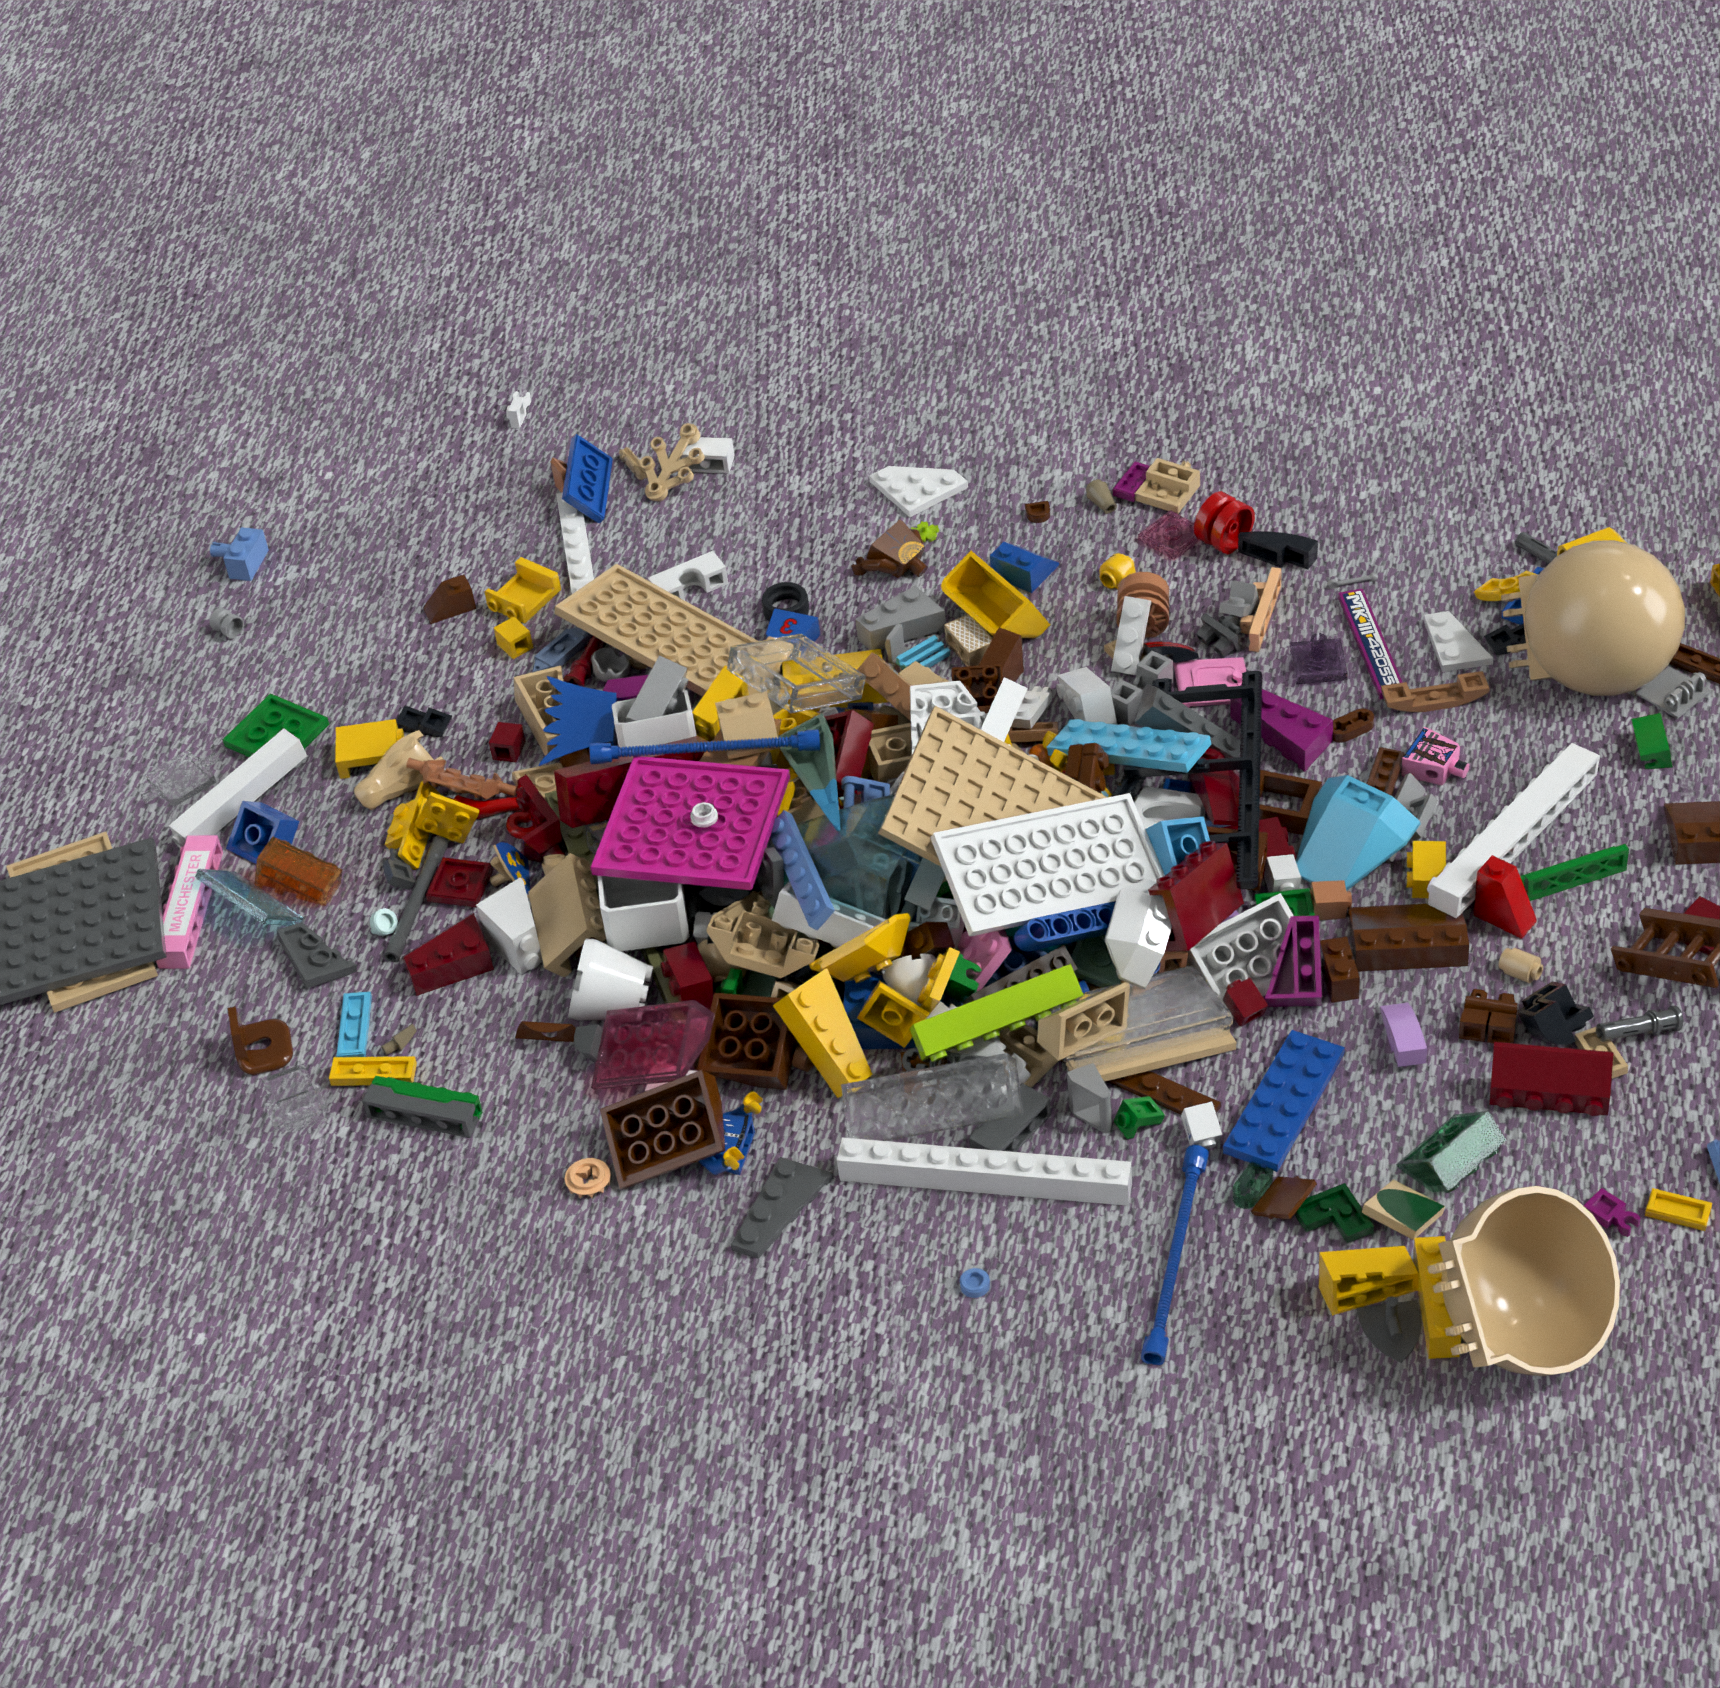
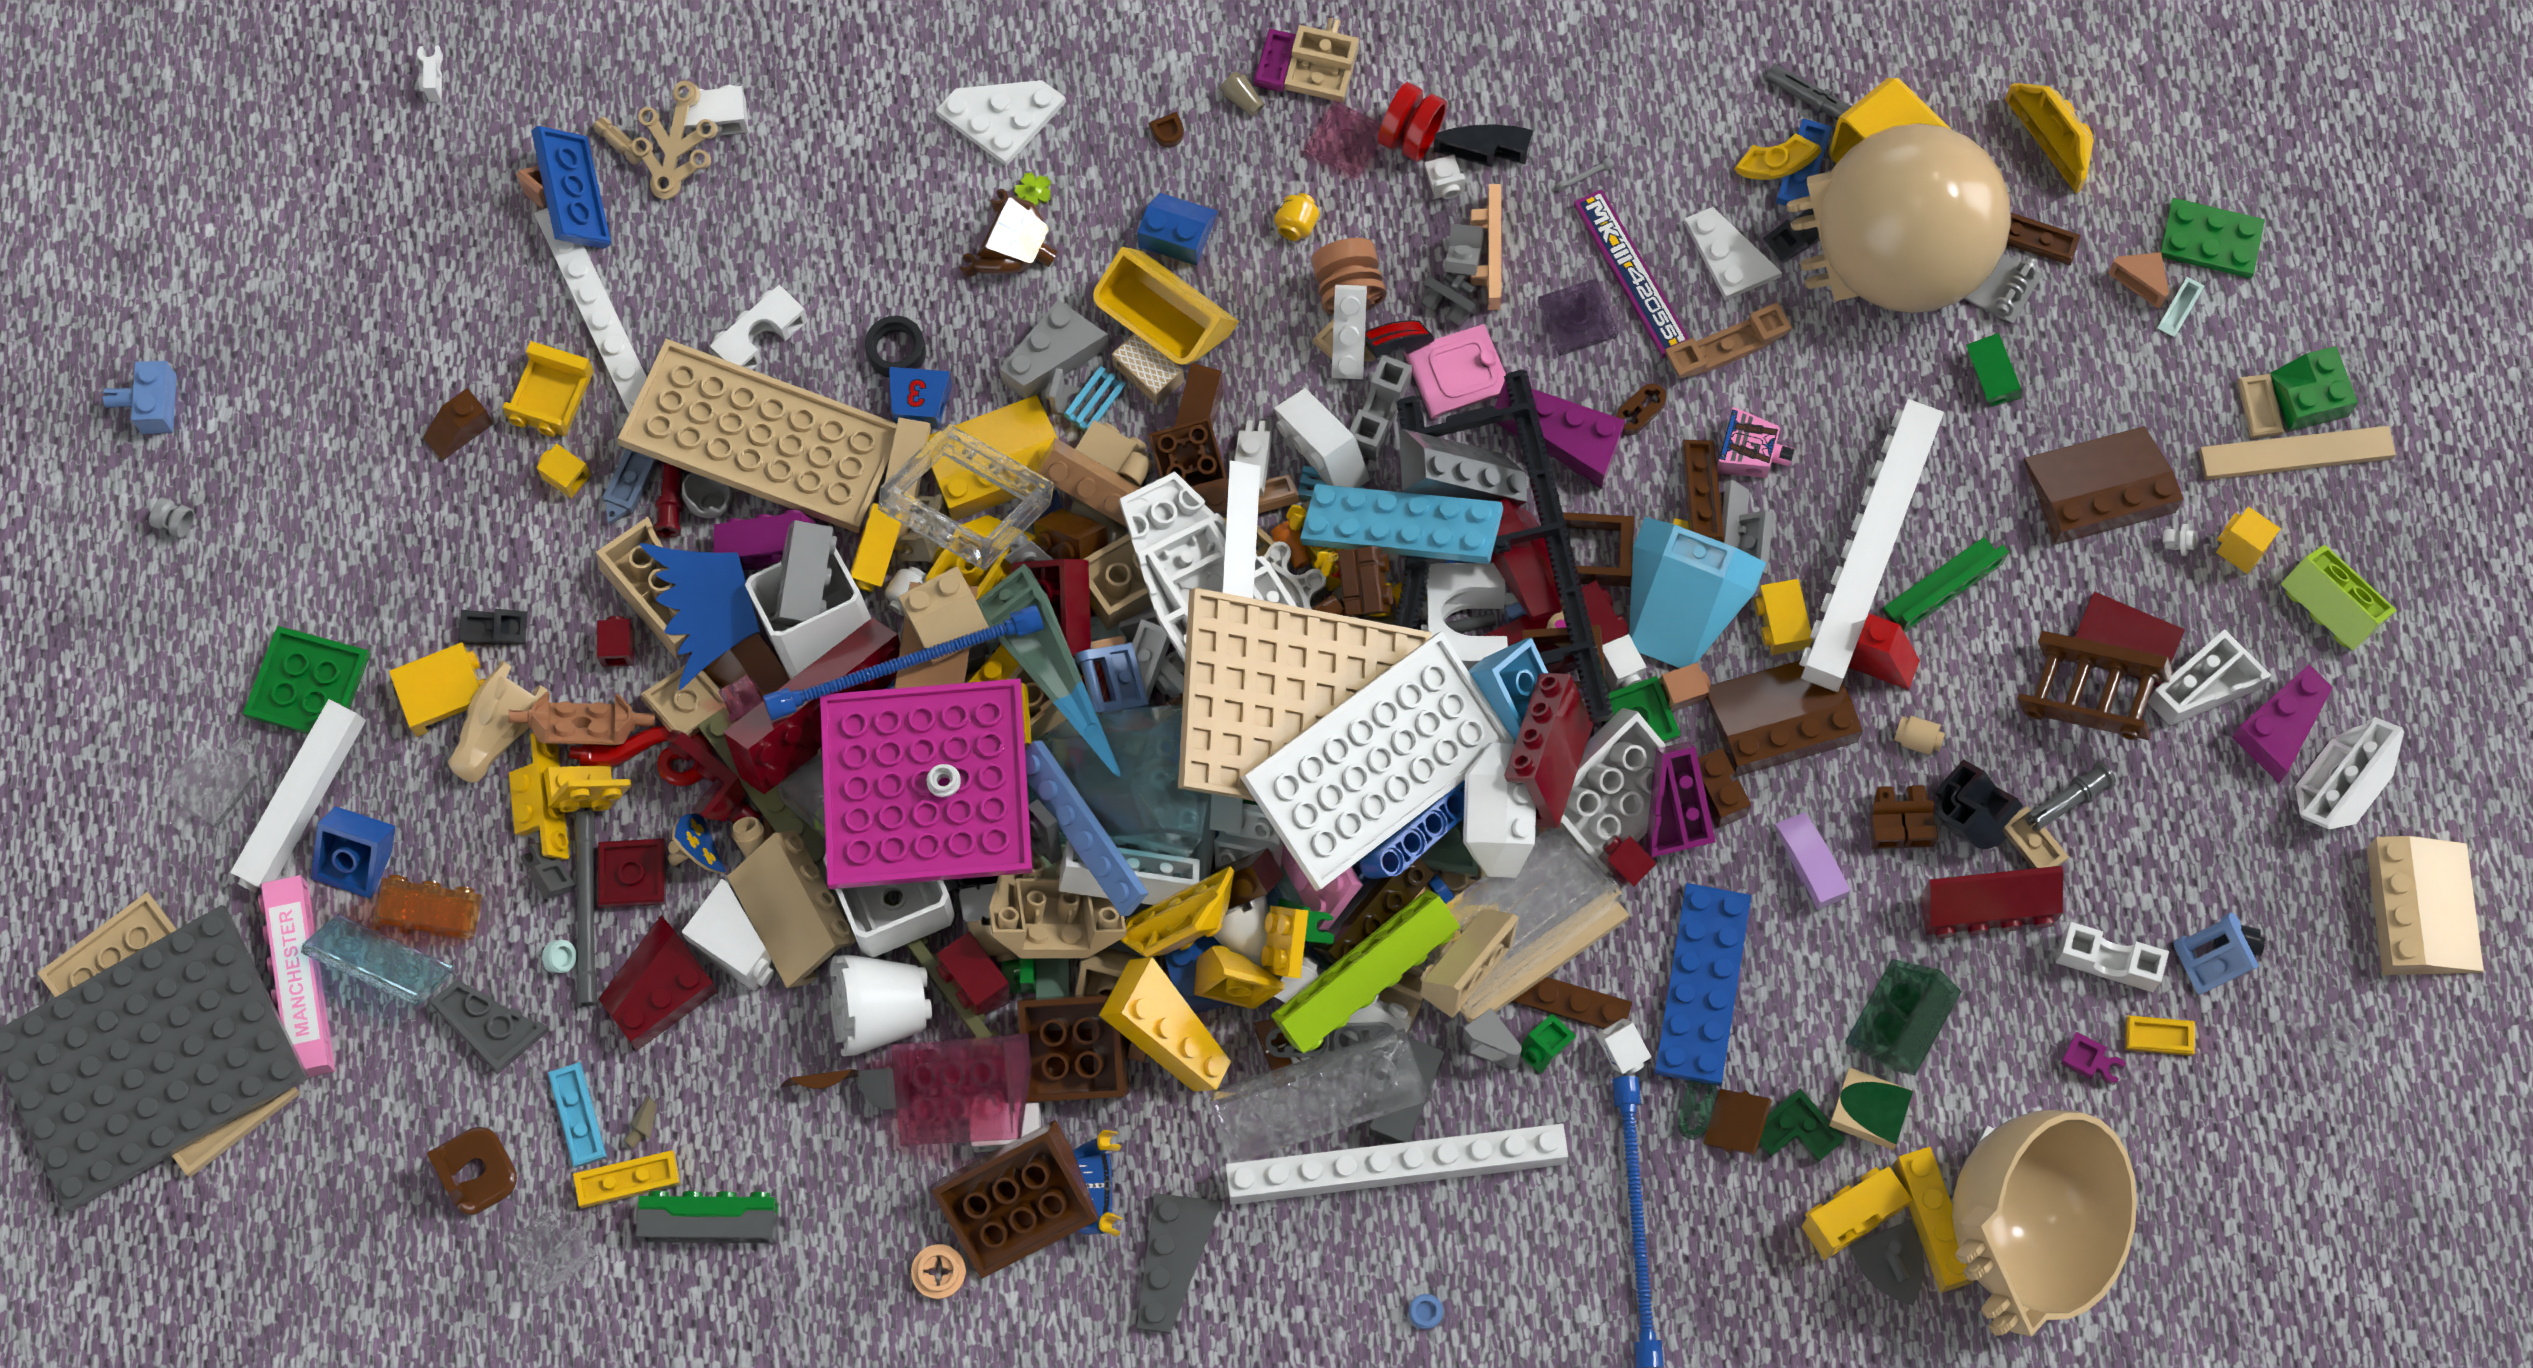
camera: 20 degrees left, 25 degrees up
(1241, 566) = (1445, 177): none -> white bracket
(1624, 1132) = (2131, 965): none -> white arch

